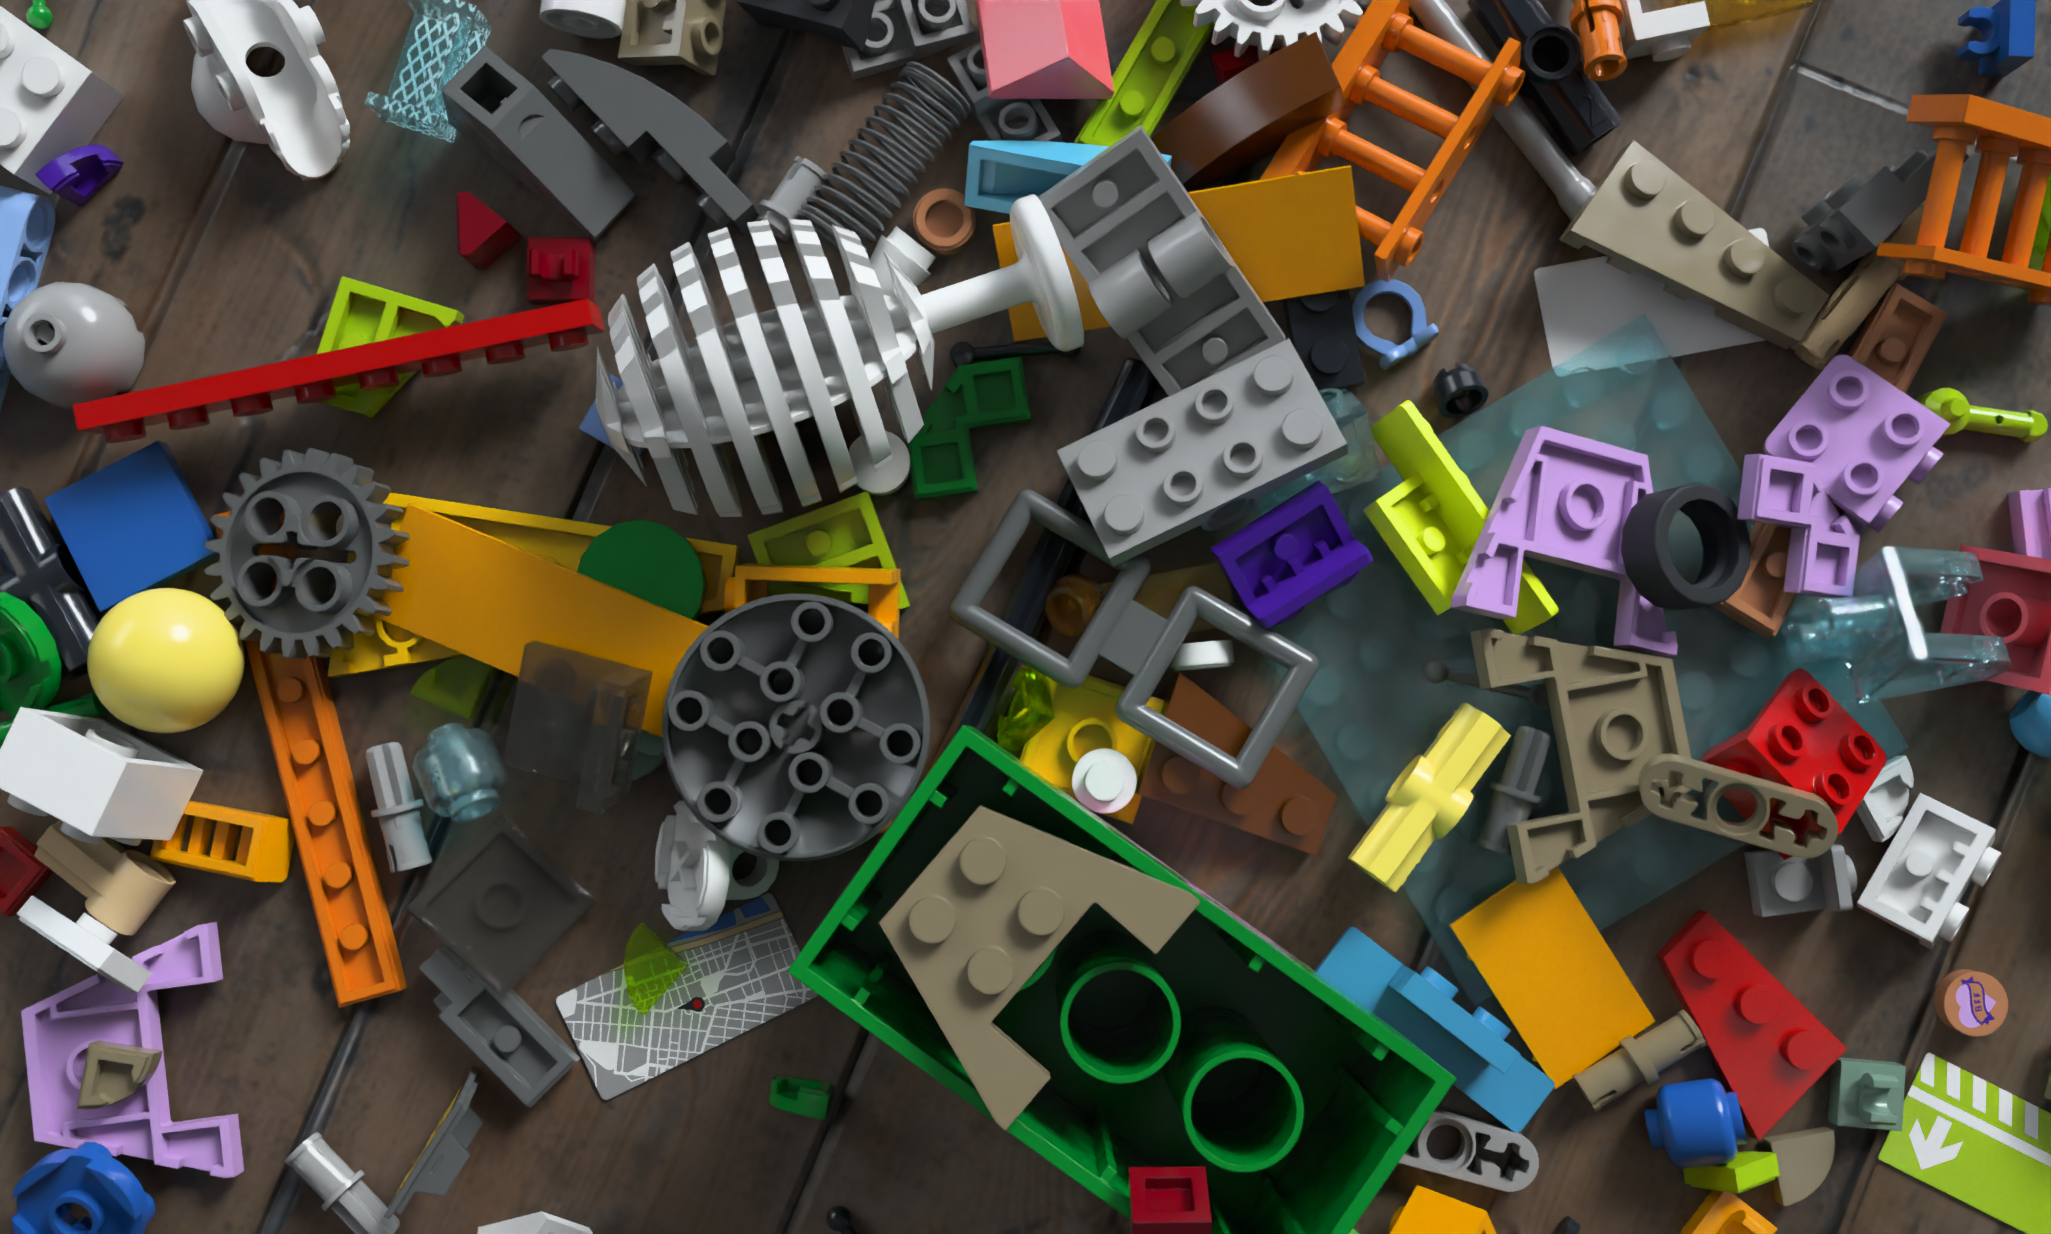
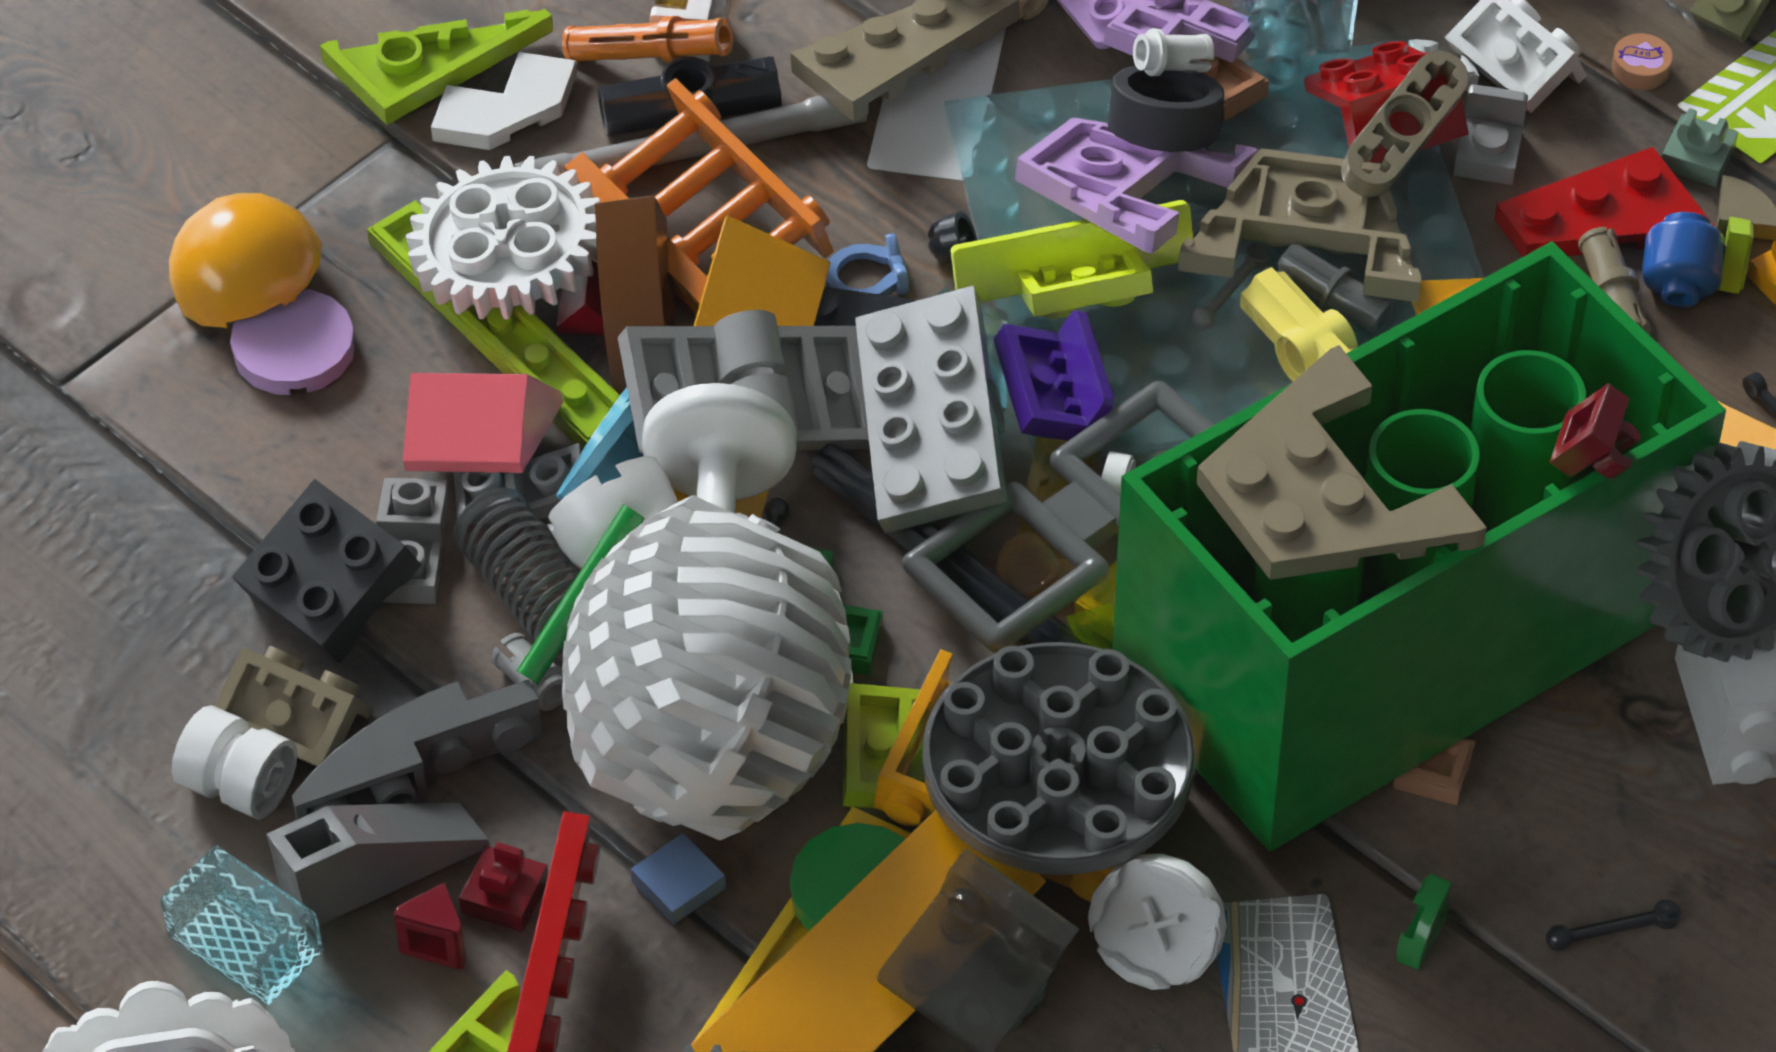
camera: 70 degrees left, 35 degrees down
(650, 968) = (1247, 1020): clear neon green tile -> none
(829, 213) = (554, 633): none -> green bar
(936, 216) = (591, 507): none -> white cylinder
(1738, 524) = (1162, 52): none -> white pin

